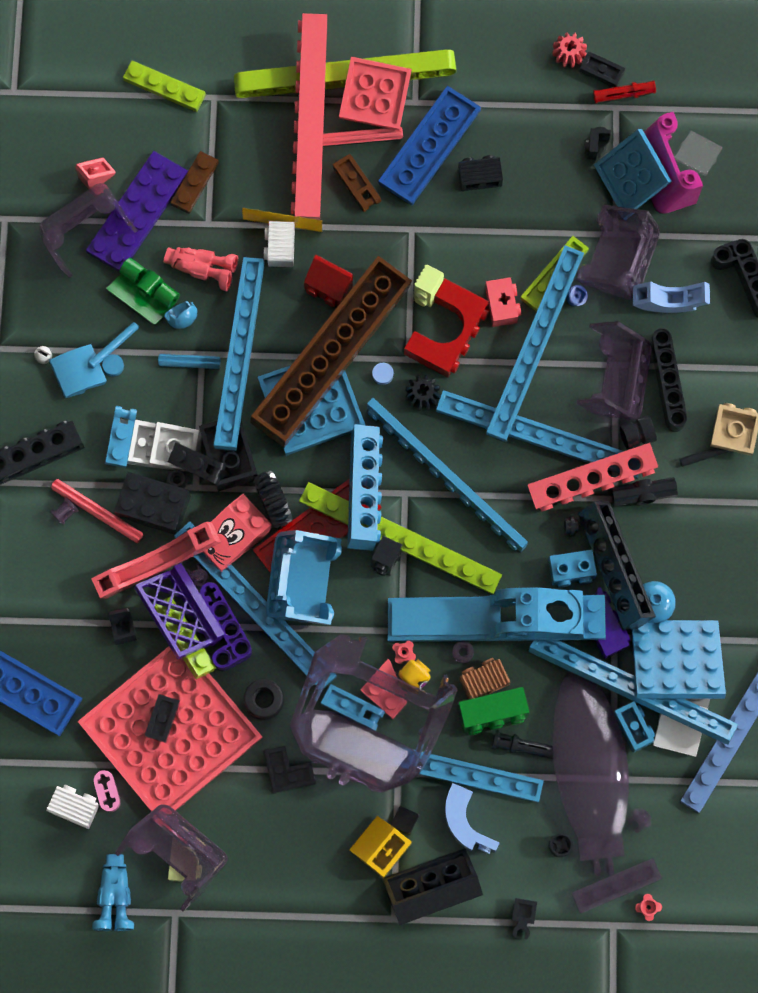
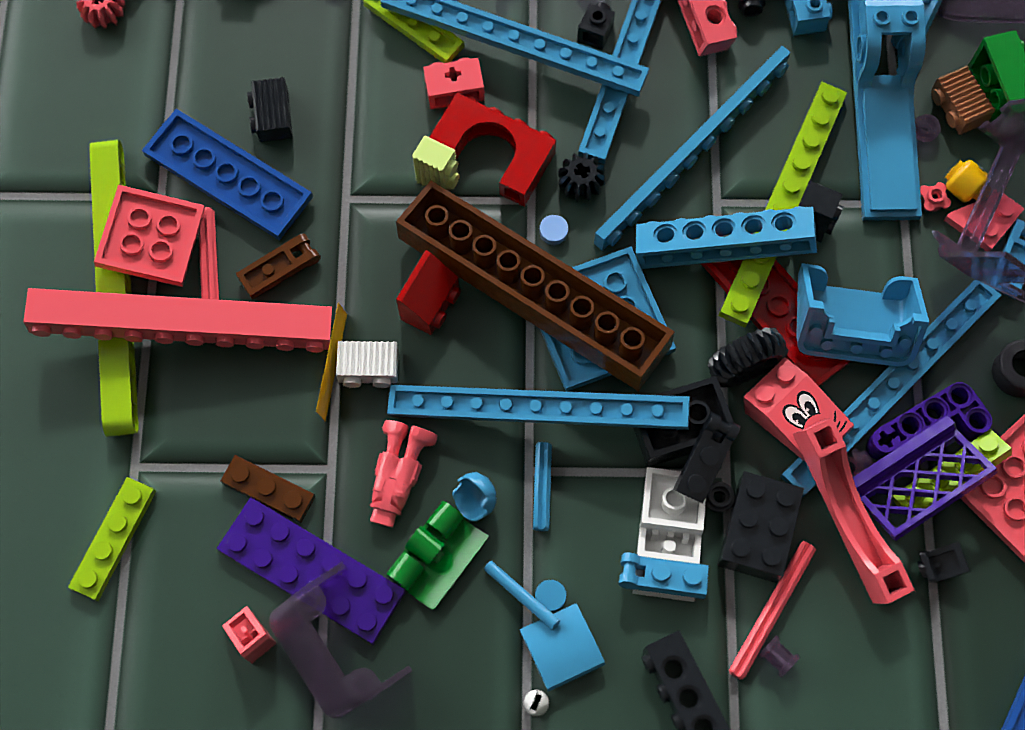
camera: 90 degrees left, 5 degrees down
(544, 408) = (596, 25): none -> black brick

